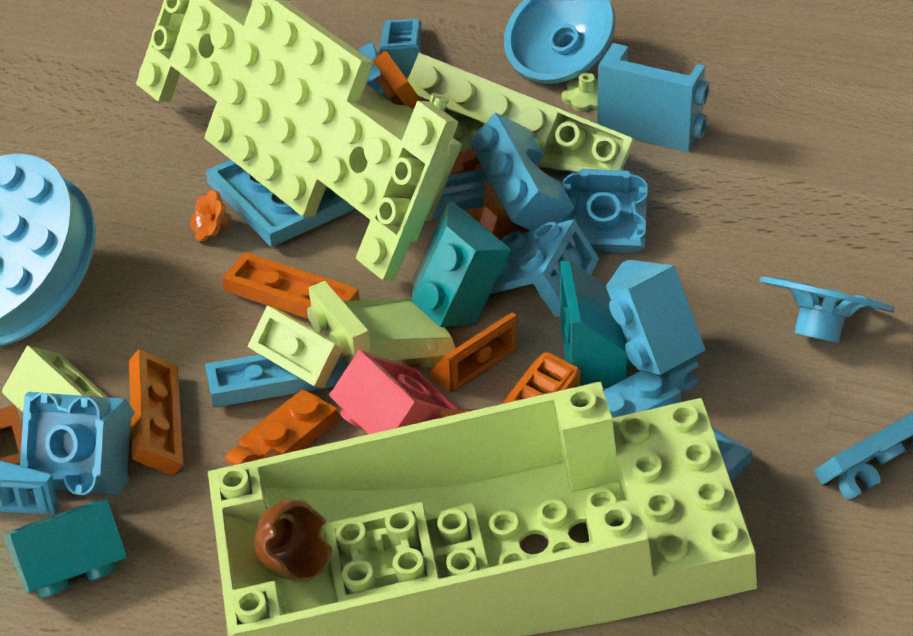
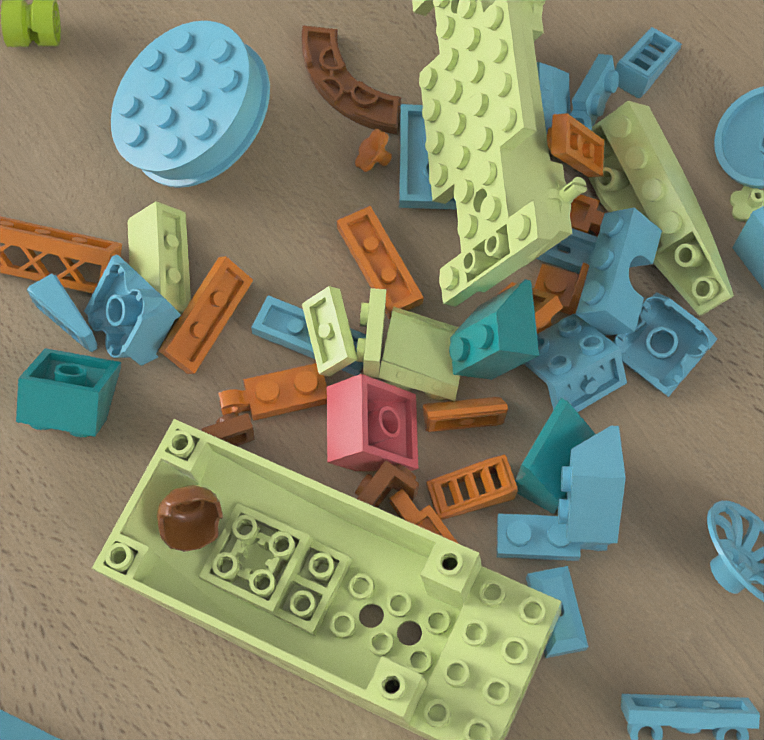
camera: 30 degrees right, 25 degrees up
(149, 197) = (340, 88): none -> dark orange tile

